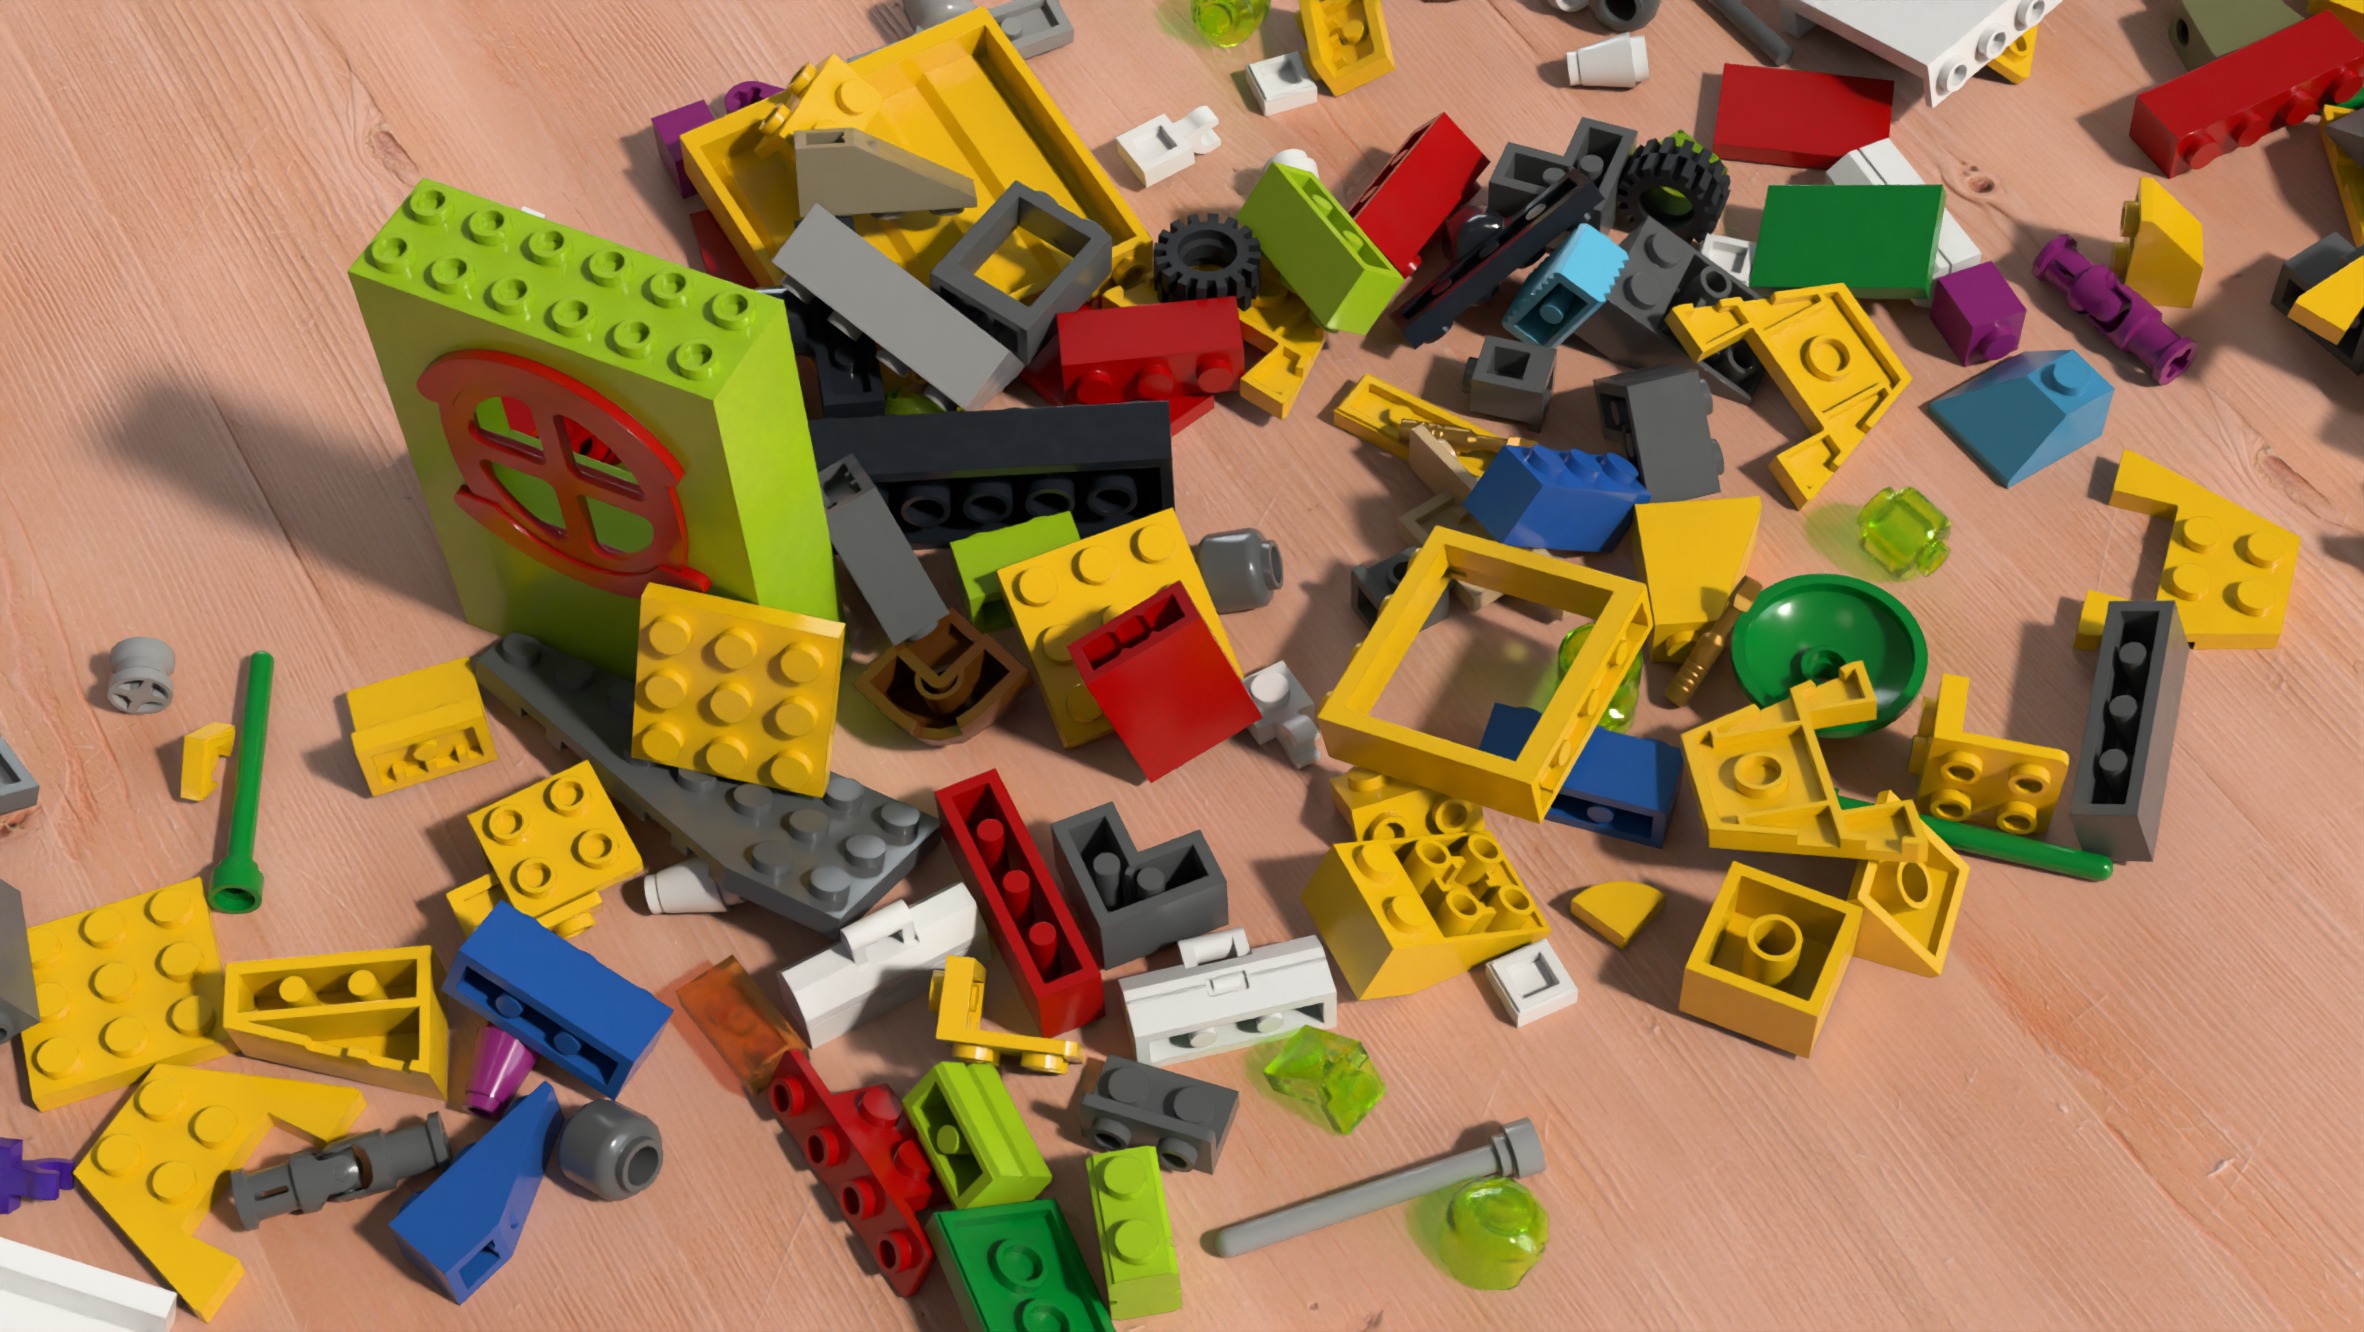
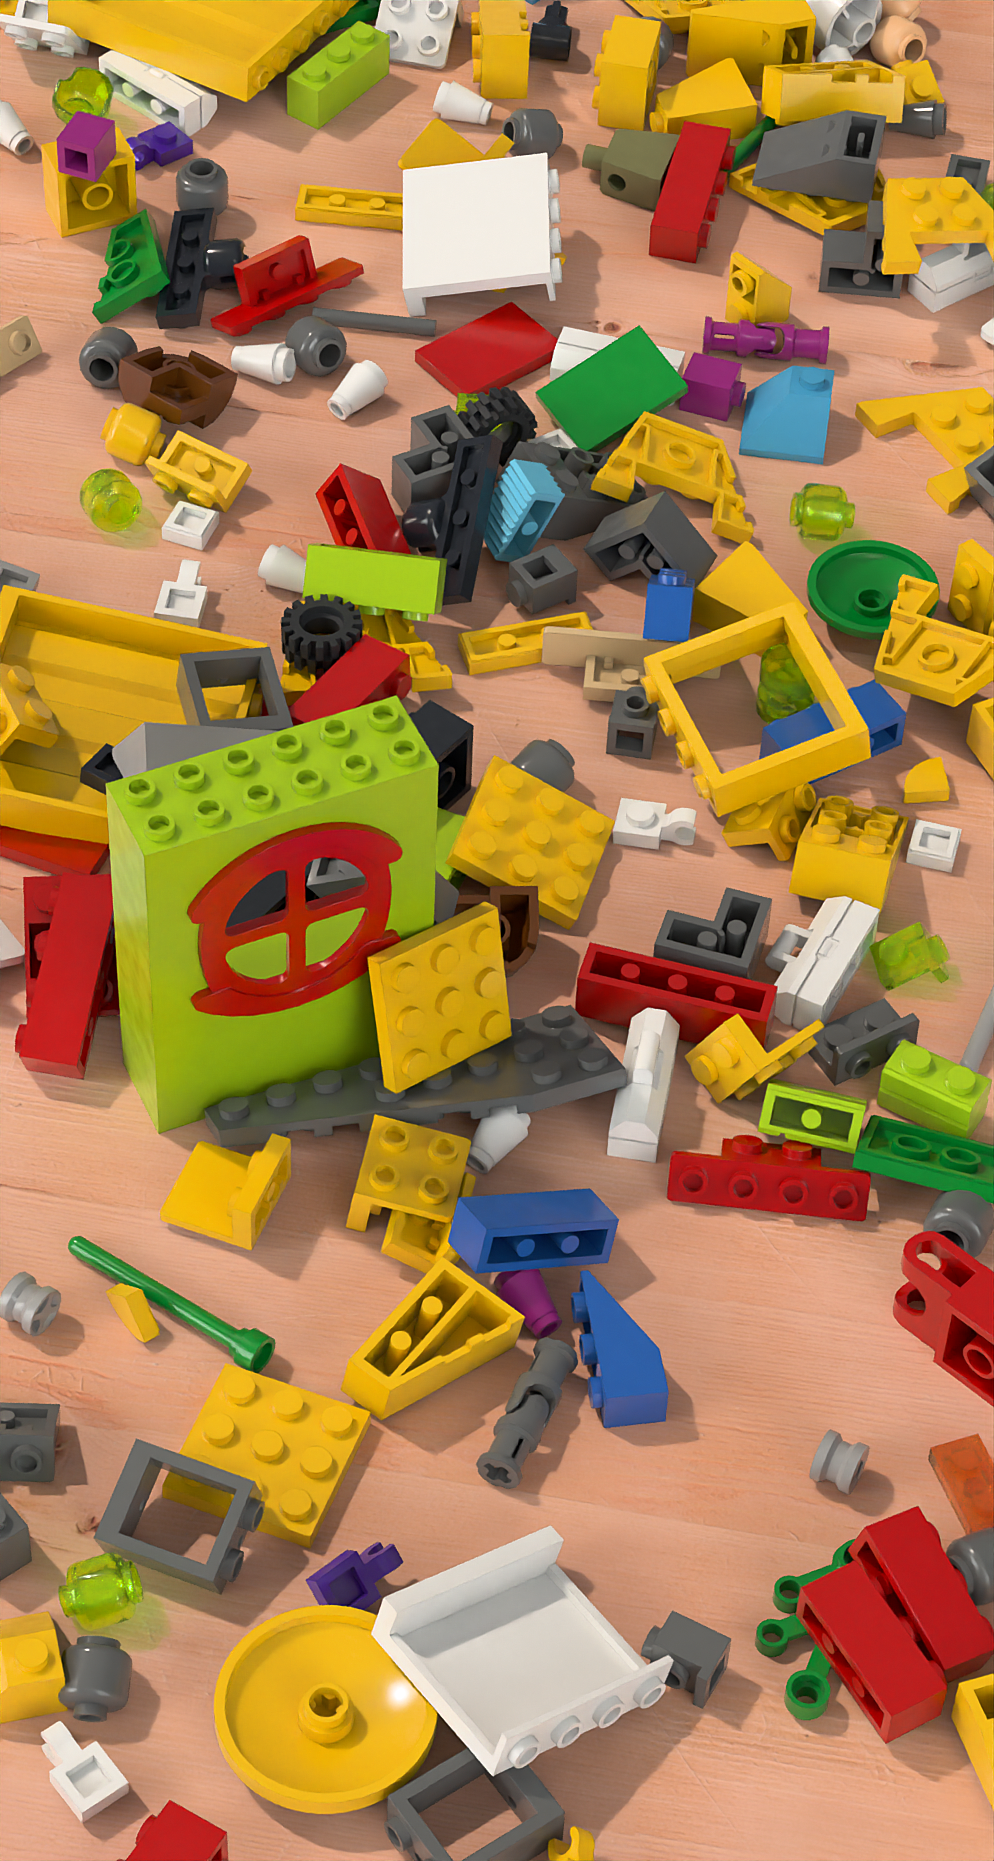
camera: 55 degrees left, 5 degrees down
(174, 1156) = (421, 1491): yellow wing -> none
(610, 1150) = (645, 1280): dark grey head -> none
(740, 1022) = (620, 1173): clear orange plate -> none
(865, 175) = (82, 719): dark tan slope -> none
(1164, 681) = (614, 834): red brick -> none
(1461, 438) = (535, 637): pearl gold piece -> none
(1711, 643) = (815, 621): pearl gold piece -> none

